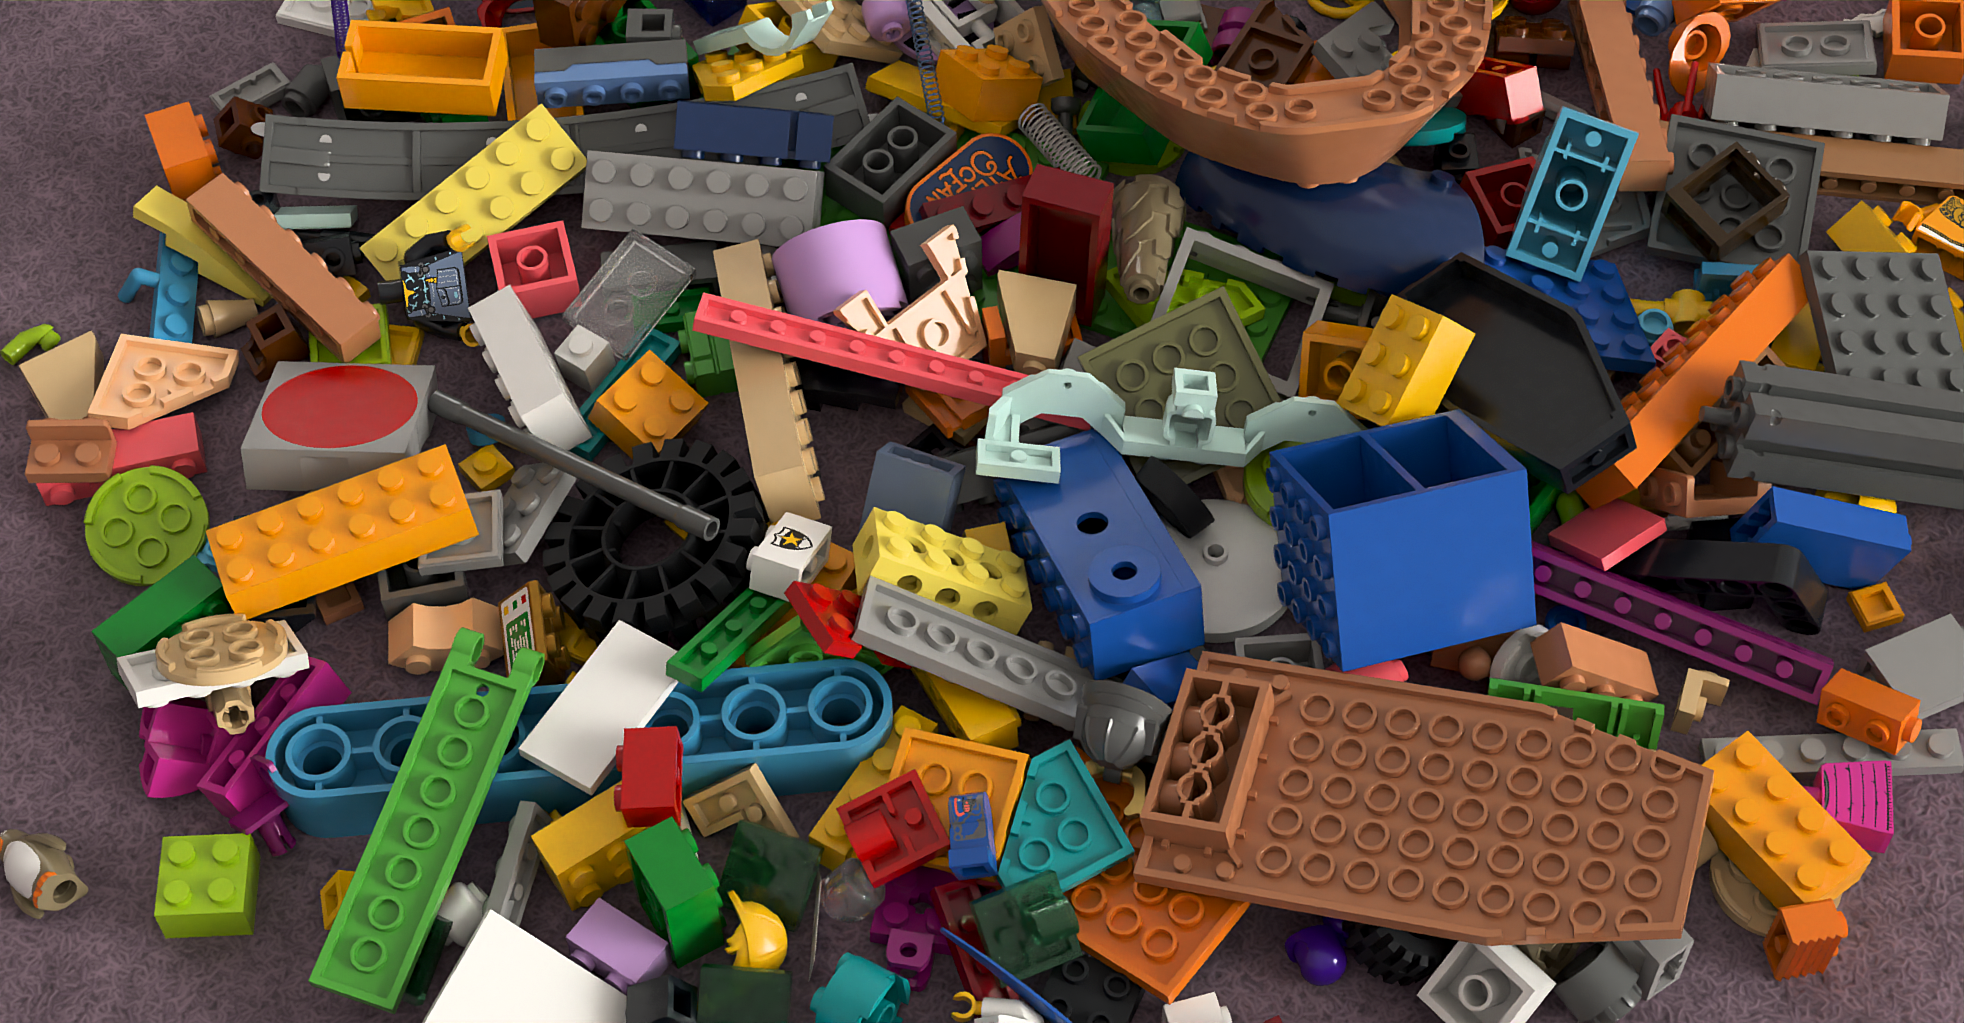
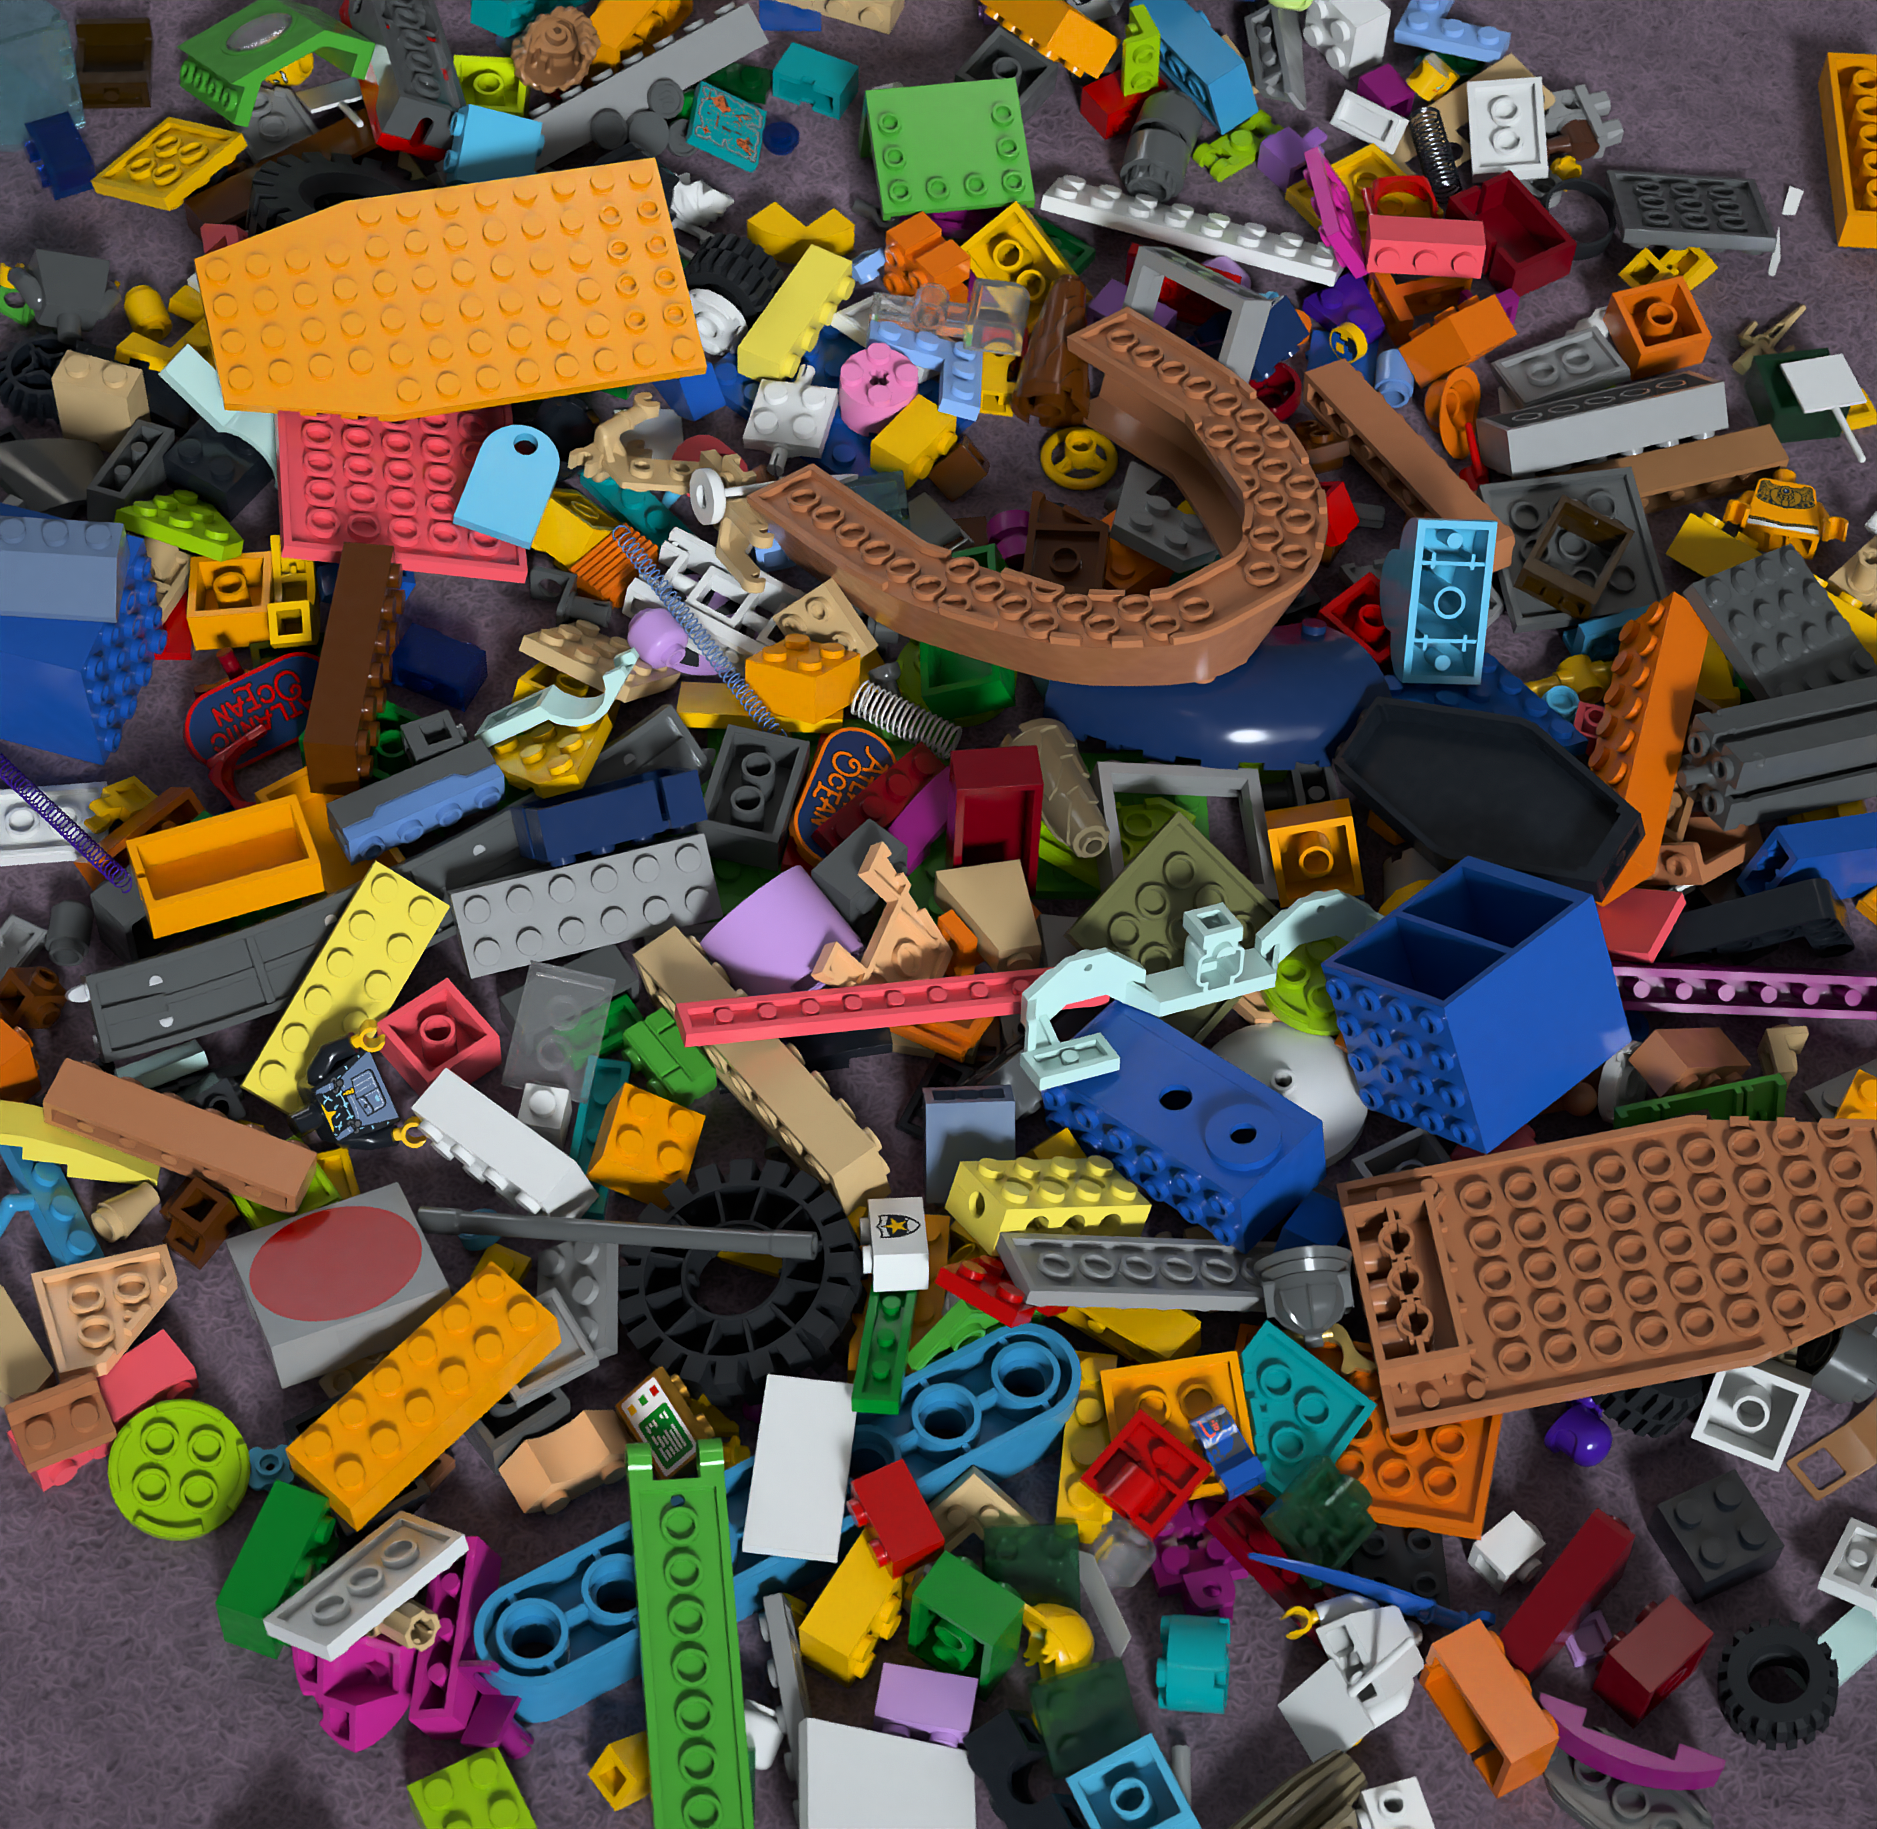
camera: 30 degrees left, 0 degrees up
(221, 650) = (375, 1567): tan tile -> none
(1173, 498) = (1228, 1039): black tyre -> none
(1405, 364) = (1390, 831): yellow brick -> none

